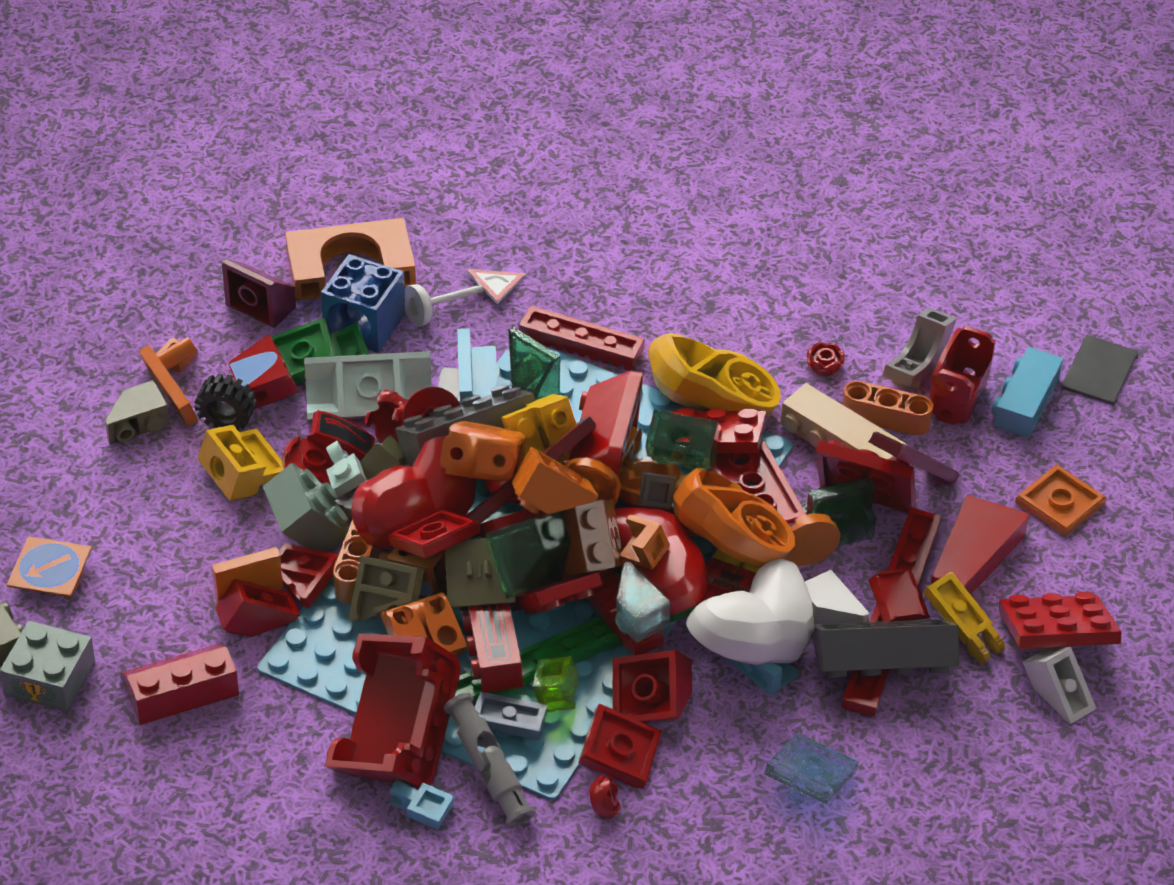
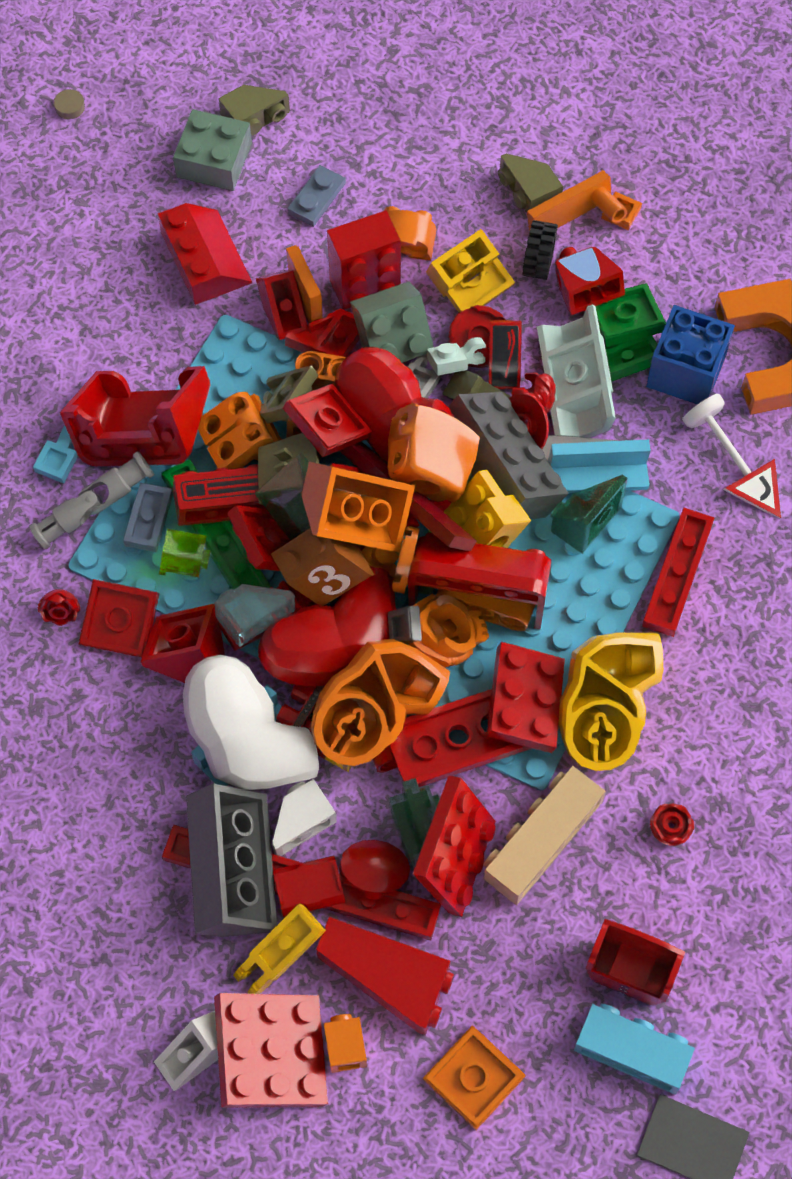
camera: 90 degrees right, 20 degrees up
(49, 566) = (331, 139): piece -> none
(117, 587) = (316, 195): none -> sand blue plate
(179, 517) = (415, 232): none -> orange cylinder
(230, 512) = (363, 257): none -> red brick
(257, 293) = (705, 264): dark red slope -> none
(647, 544) = (317, 611): orange panel -> none
(664, 446) = (476, 661): clear green brick -> none
(810, 769) = (85, 791): clear light blue hinge -> none
(814, 539) = (377, 791): orange tile -> none
(879, 550) = (374, 867): none -> red dish
(889, 407) = (598, 871): orange beam -> none
(914, 457) = (455, 884): tile -> none
(922, 350) = (692, 931): light grey arch -> none
(1043, 575) = (345, 1043): none -> orange brick

